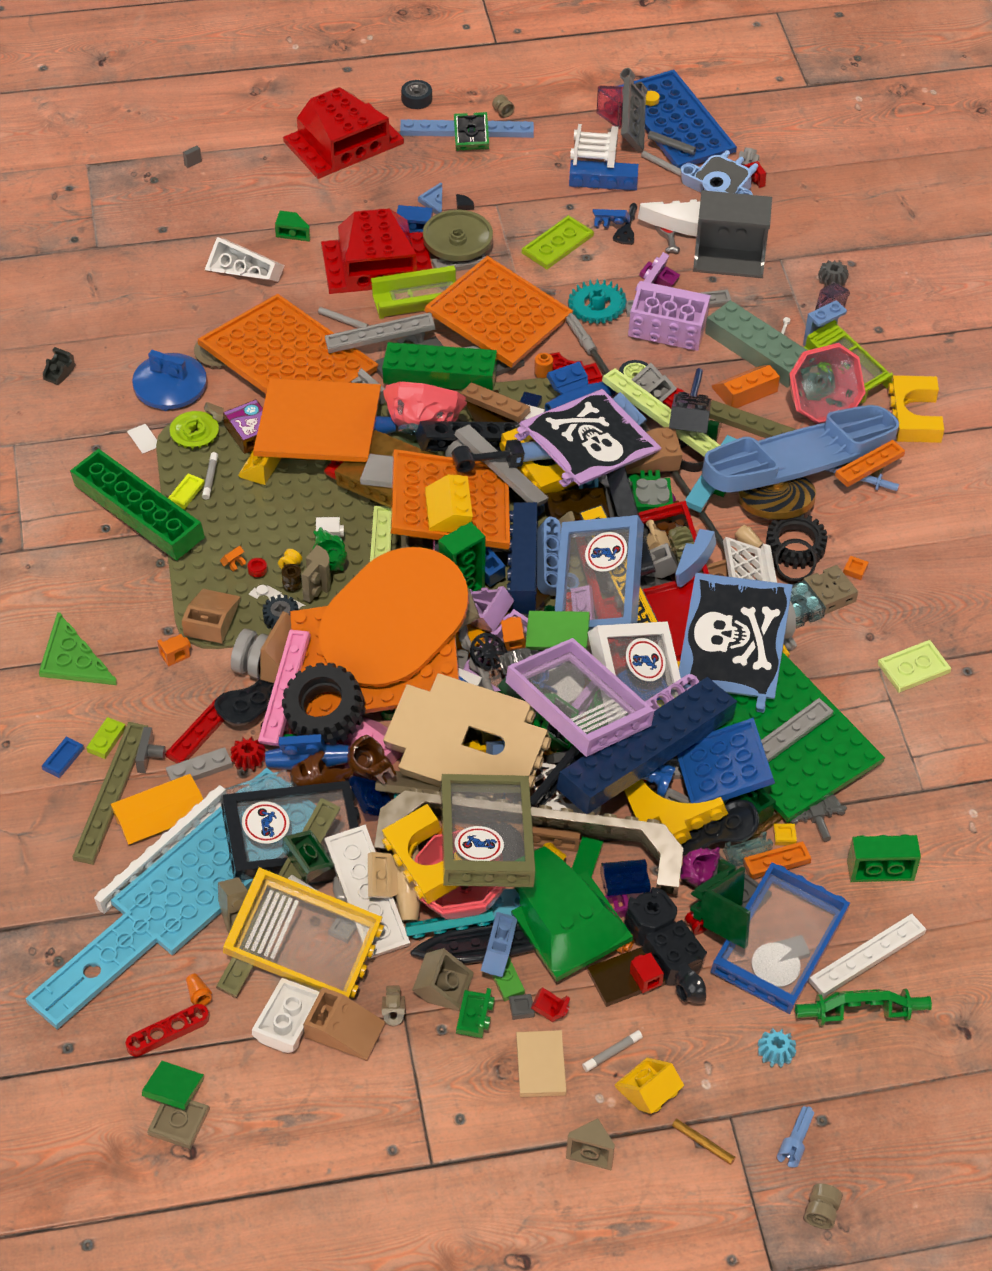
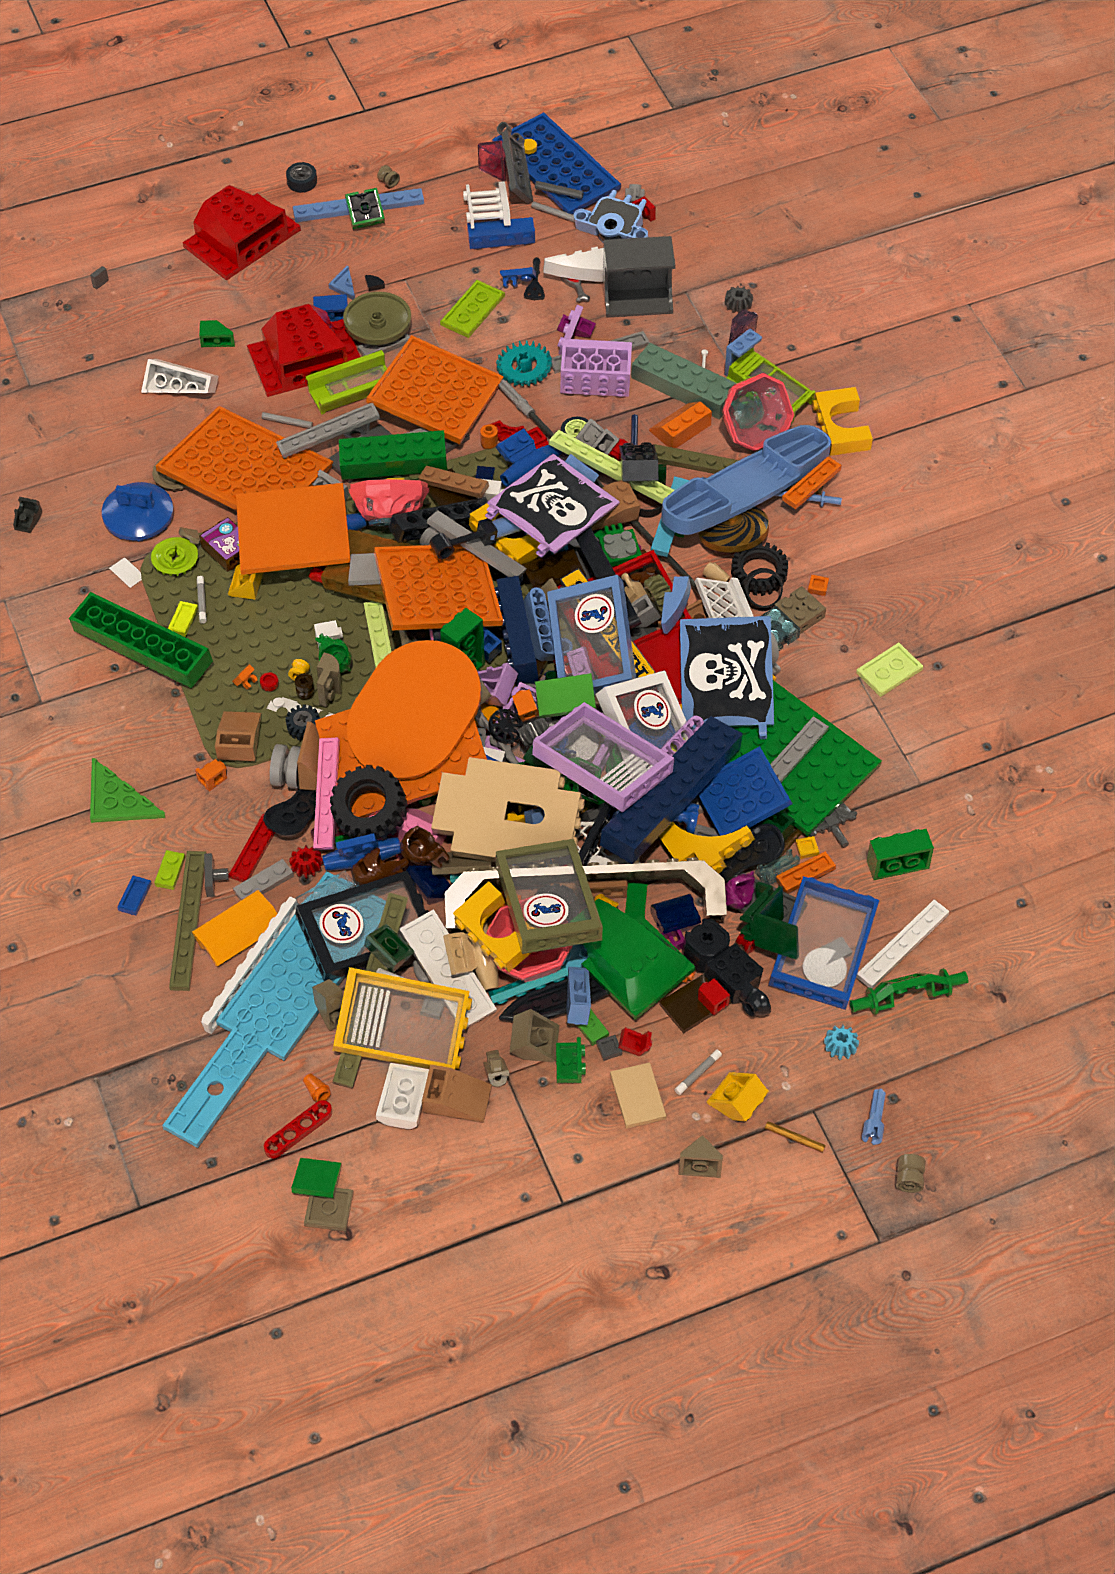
camera: 10 degrees left, 5 degrees up
(448, 503) = (439, 592): yellow slope -> none

